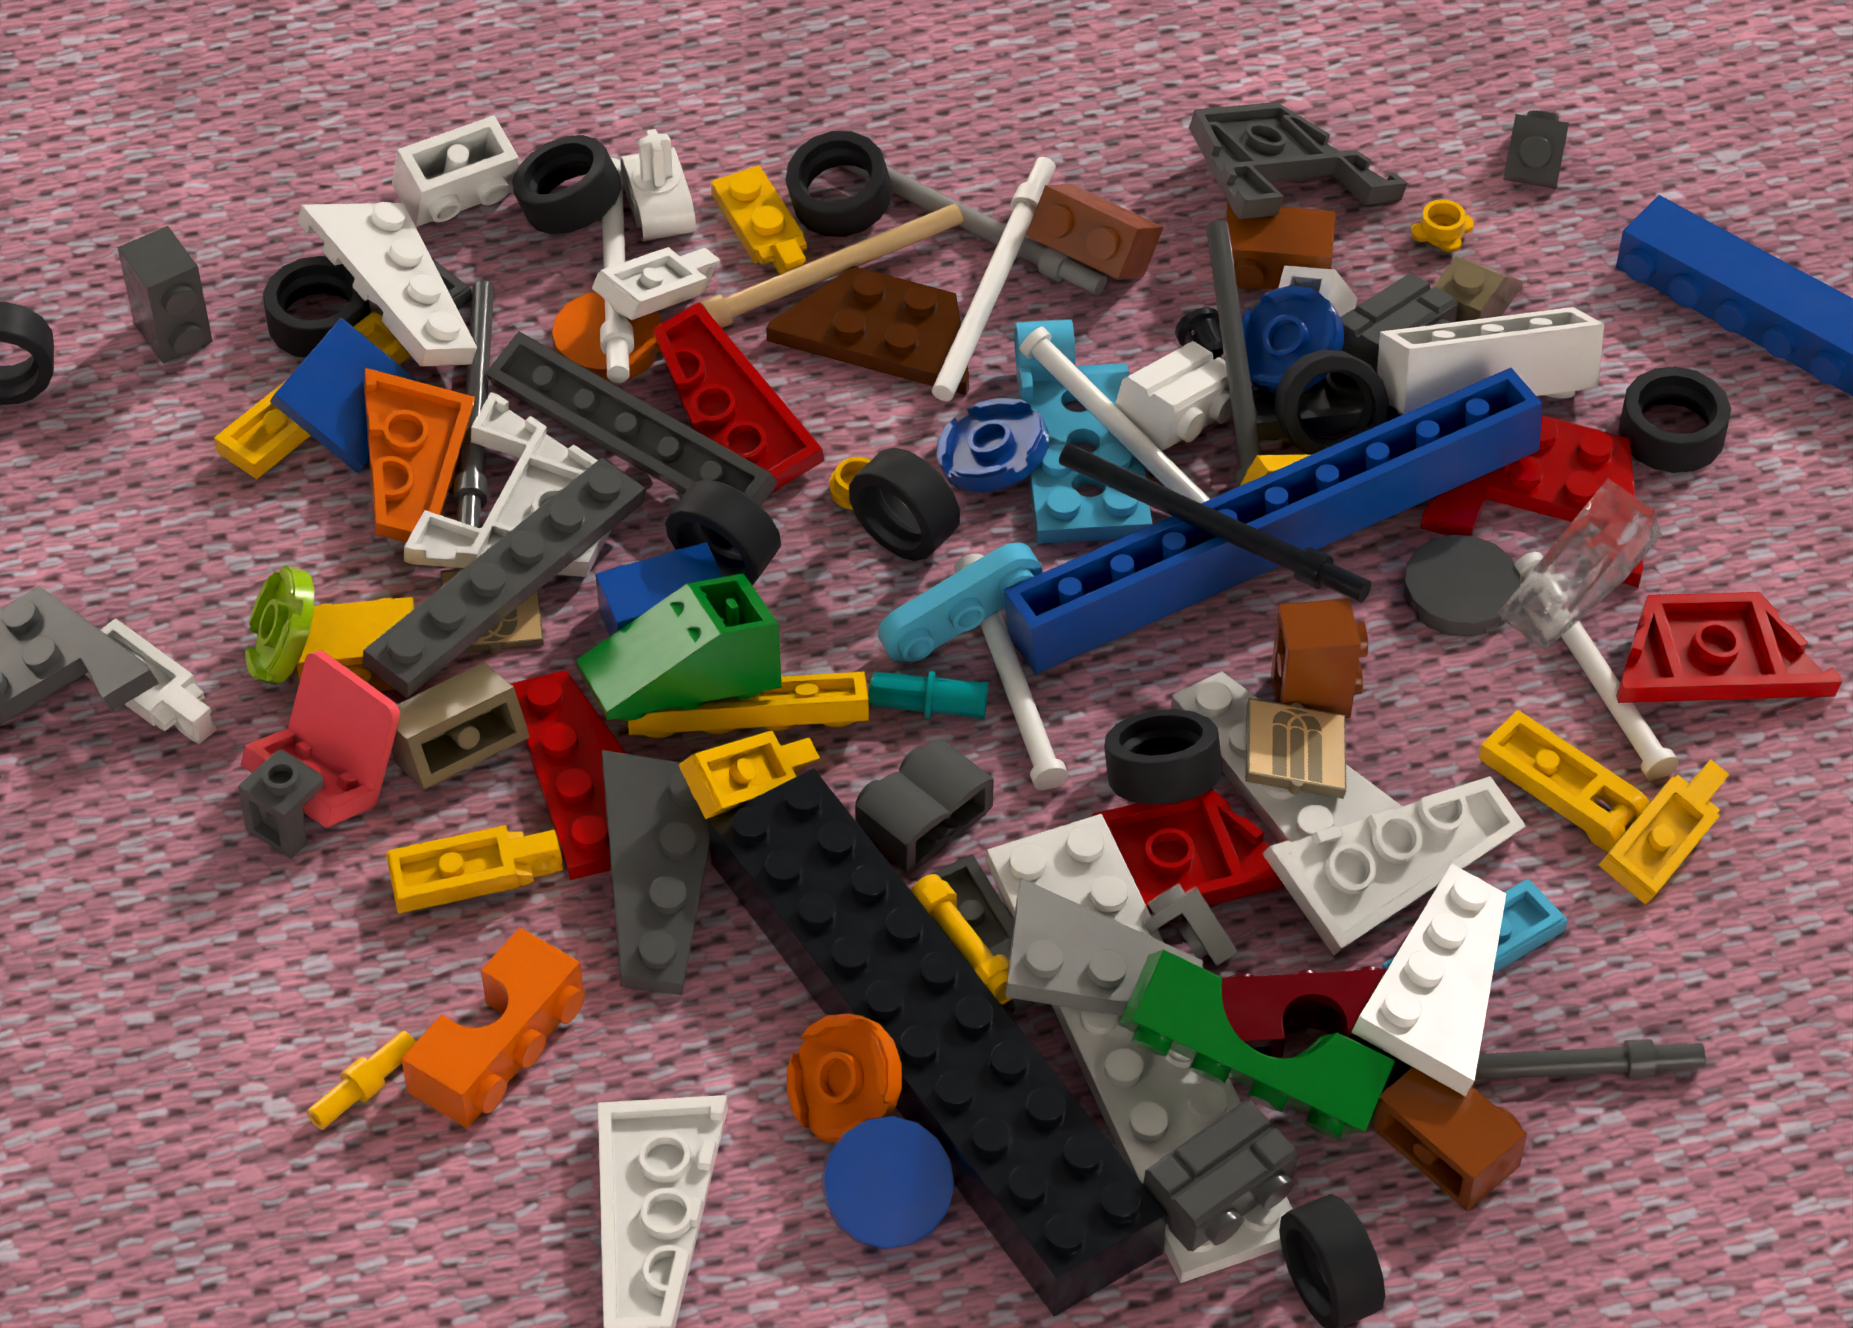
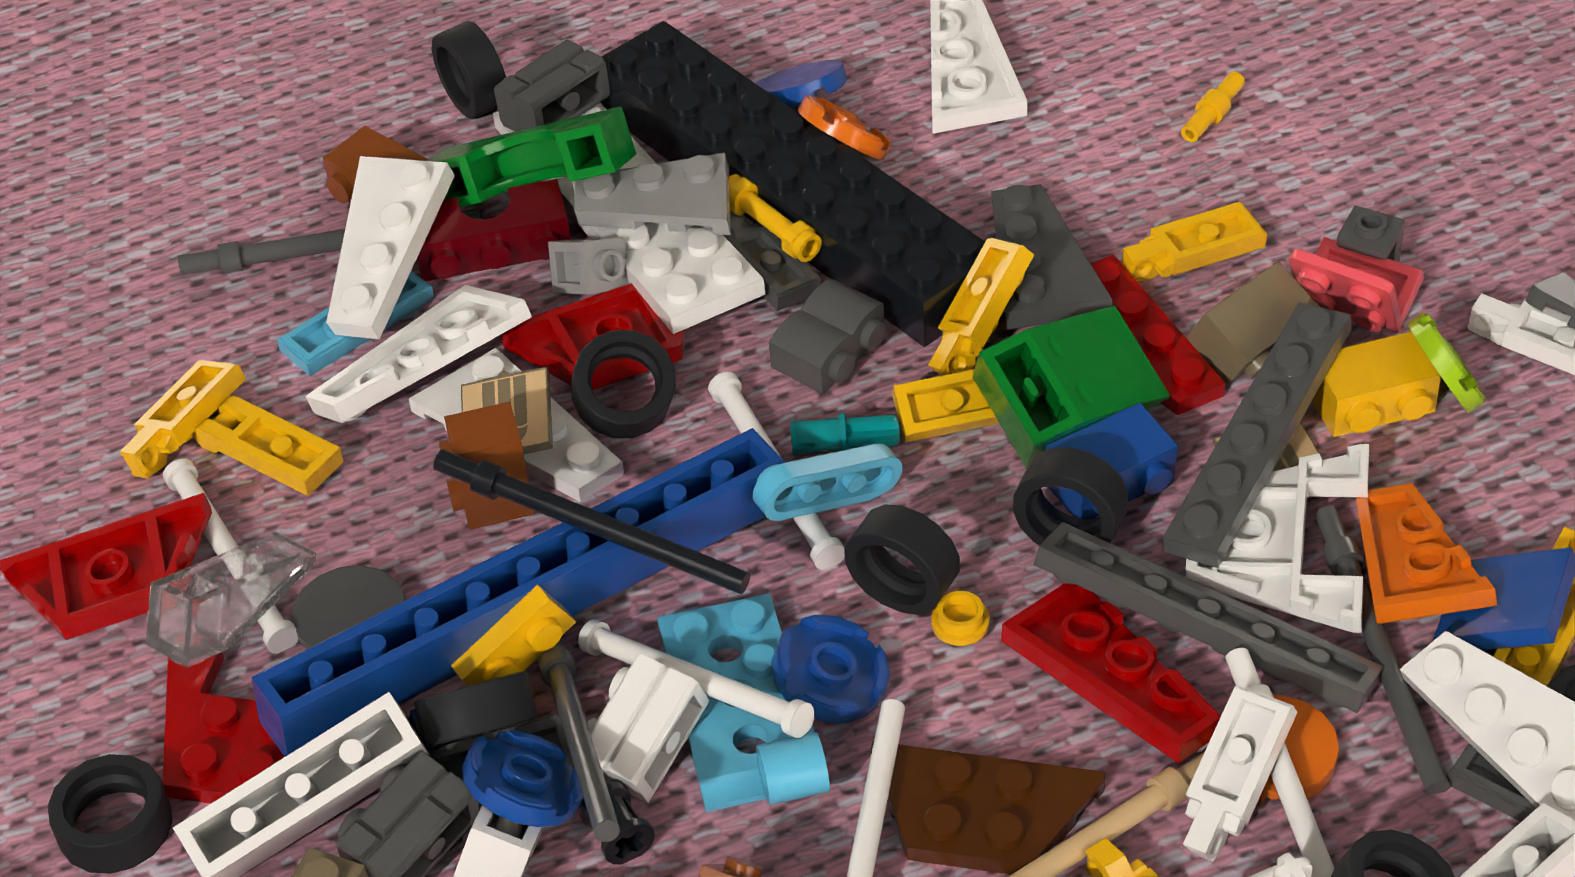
camera: 175 degrees right, 5 degrees down
(469, 1068) = (1112, 154): orange arch -> none

